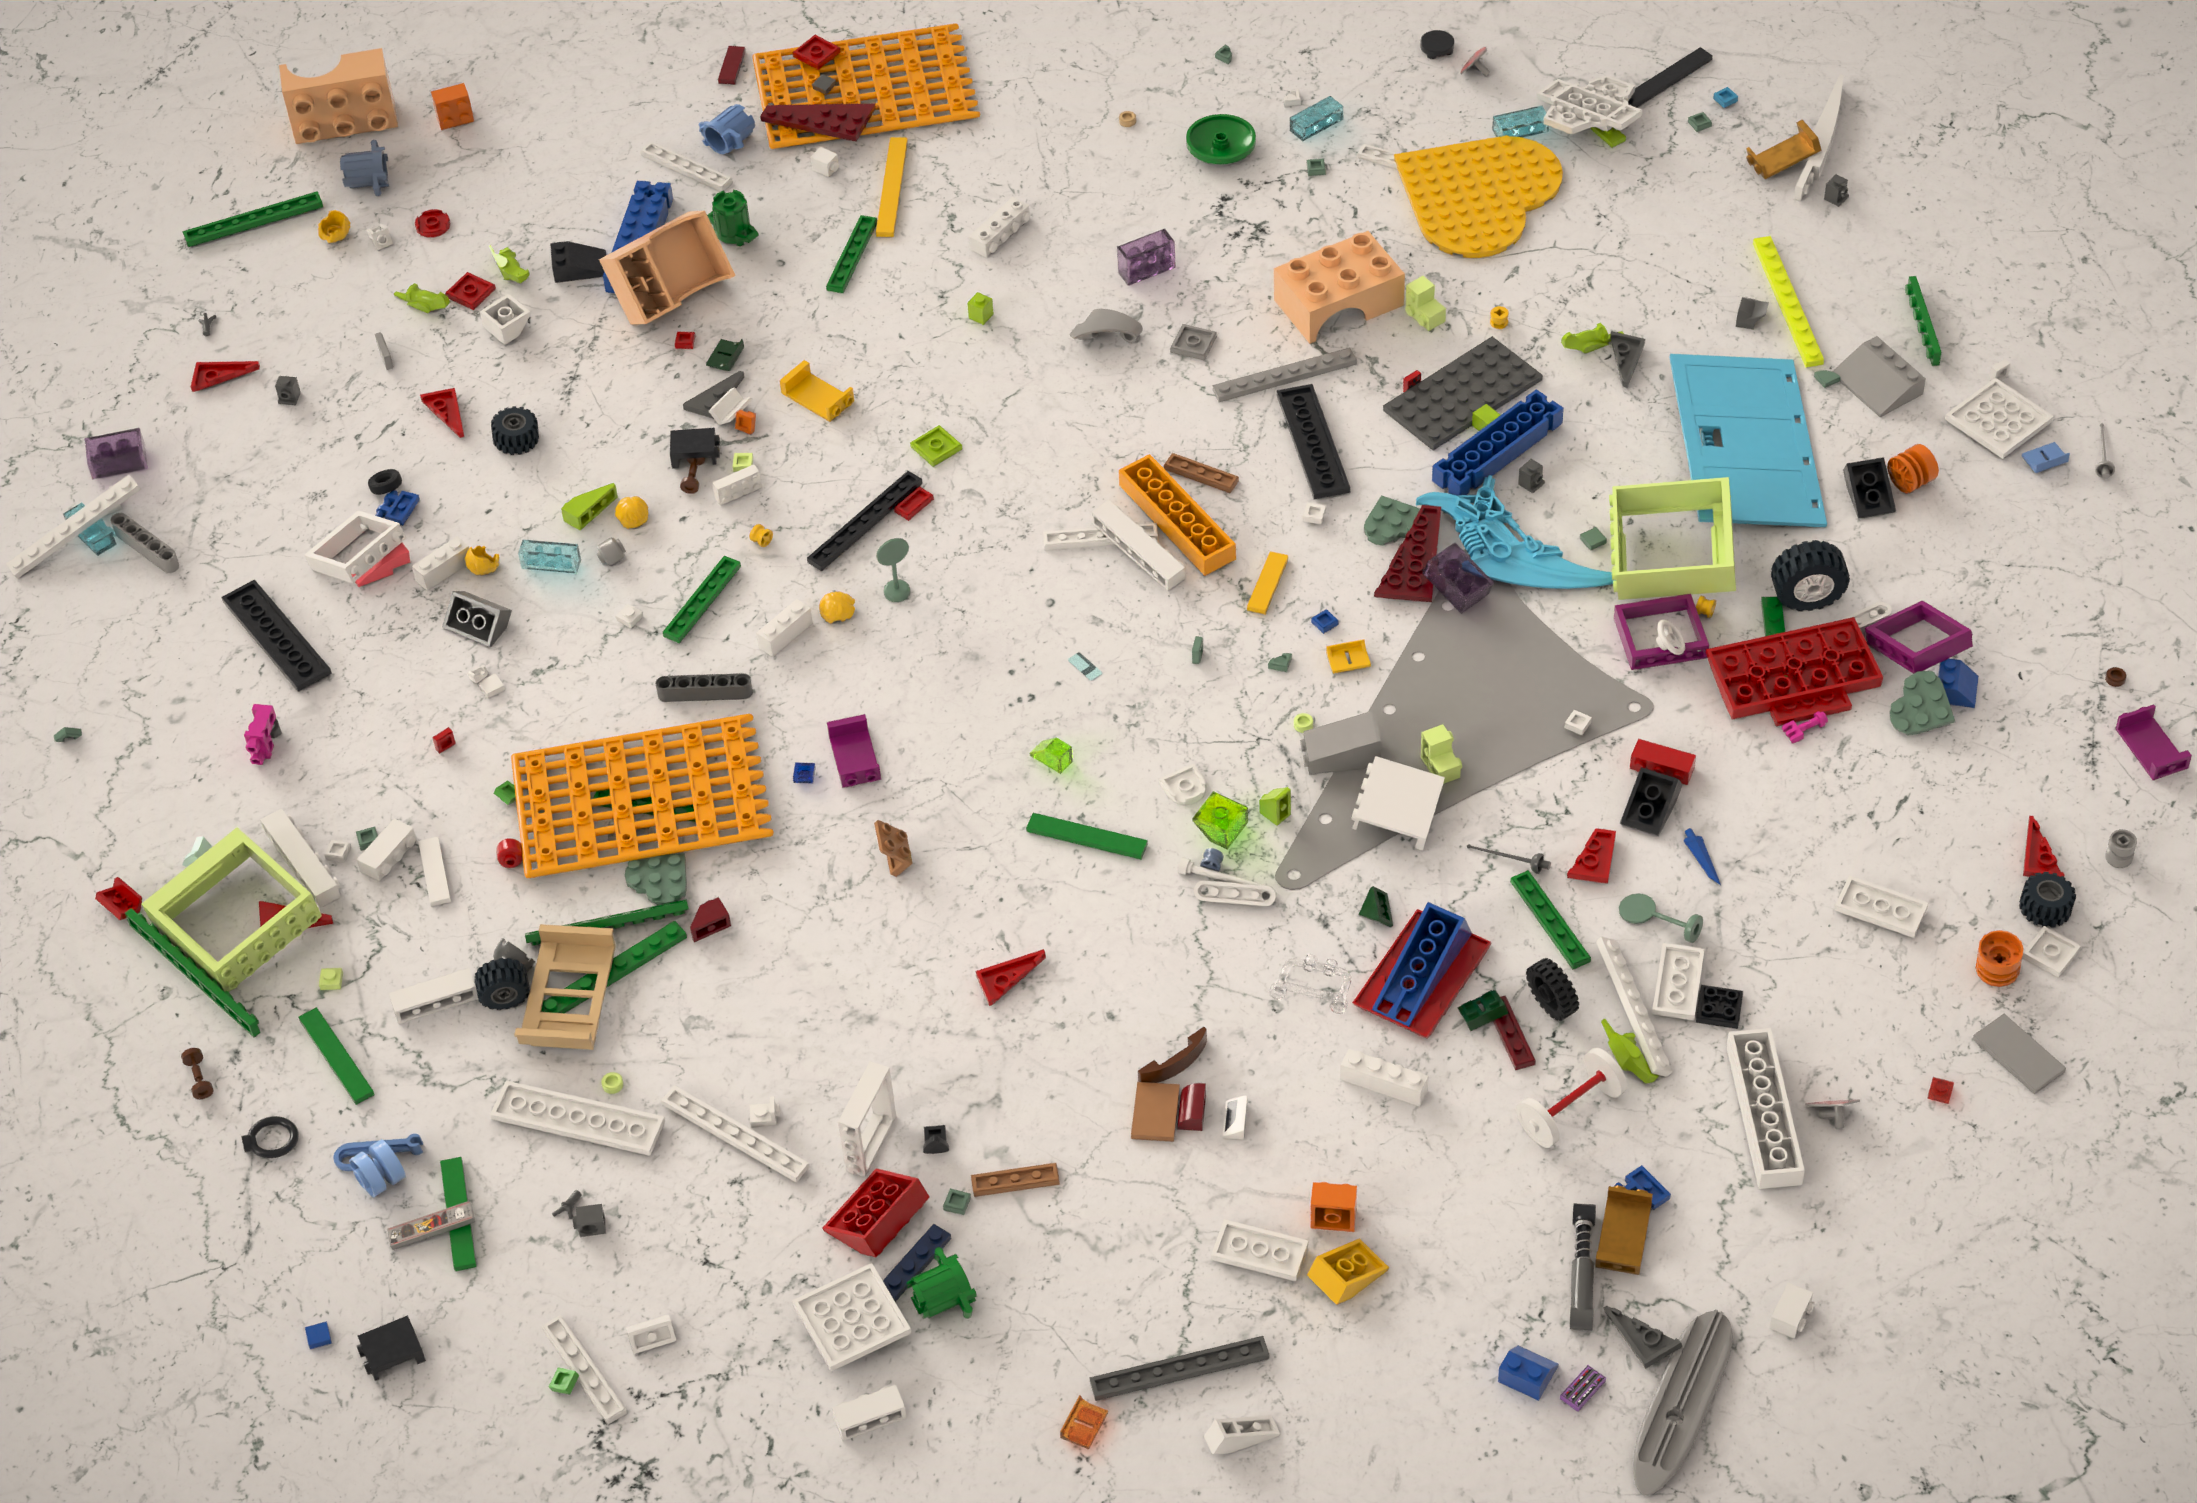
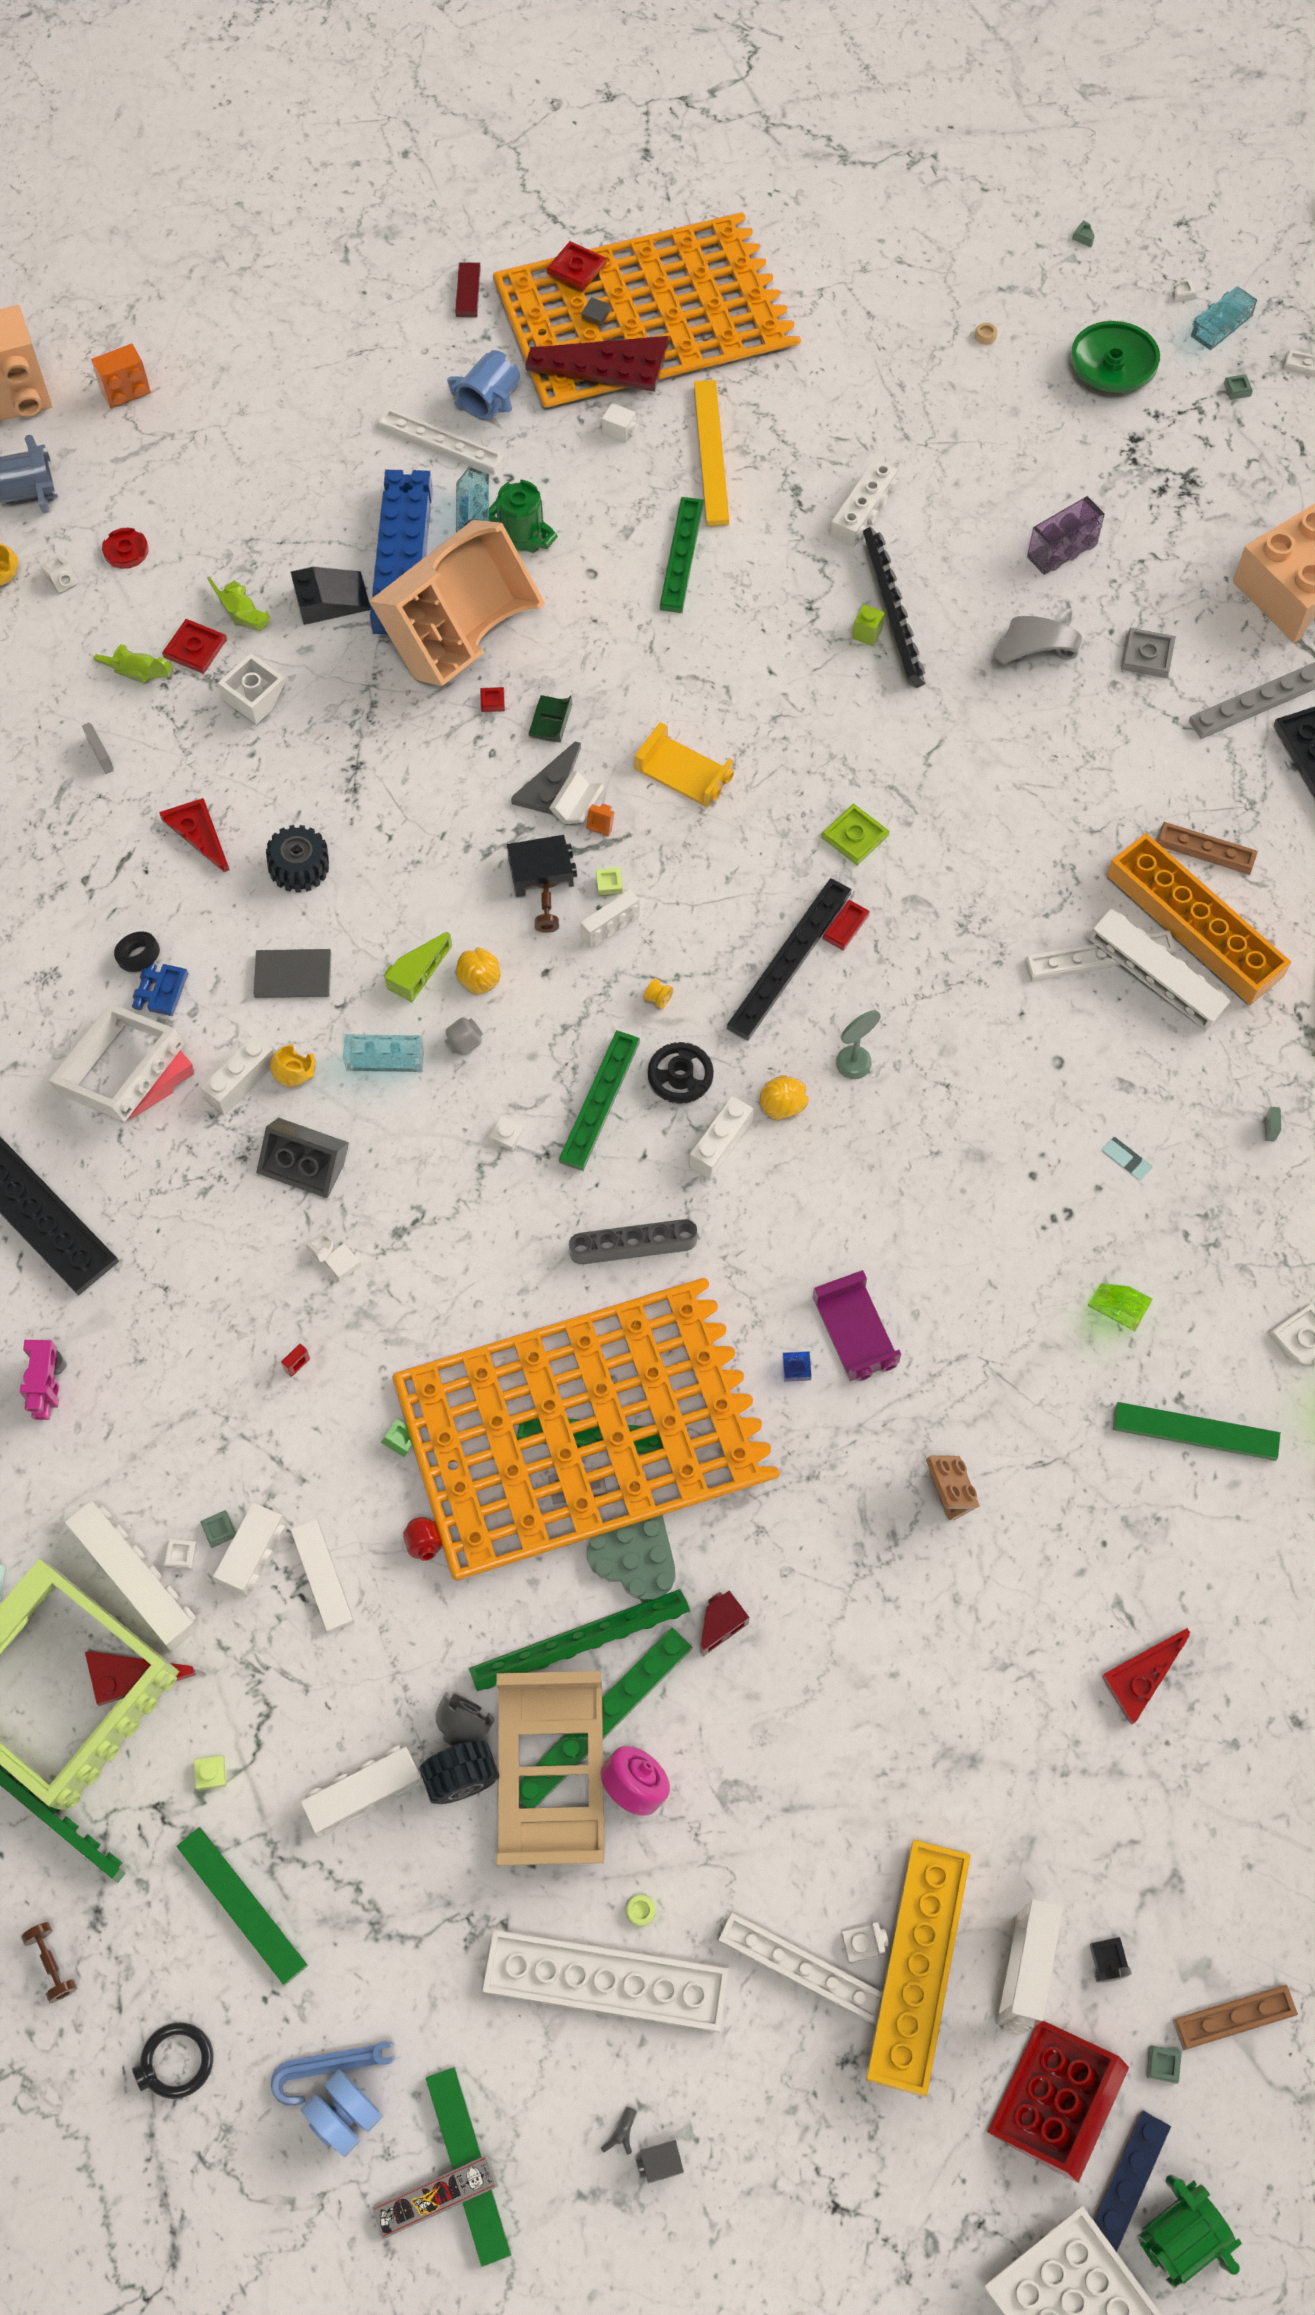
camera: 10 degrees left, 15 degrees up
(496, 505) = (292, 973): none -> dark grey tile
(625, 1003) = (635, 1781): none -> dark pink wheel
(701, 198) = (472, 497): none -> clear light blue brick
(764, 586) = (683, 1062): none -> black wheel
(796, 1125) = (918, 1969): none -> yellow plate
(1003, 297) = (896, 612): none -> black plate

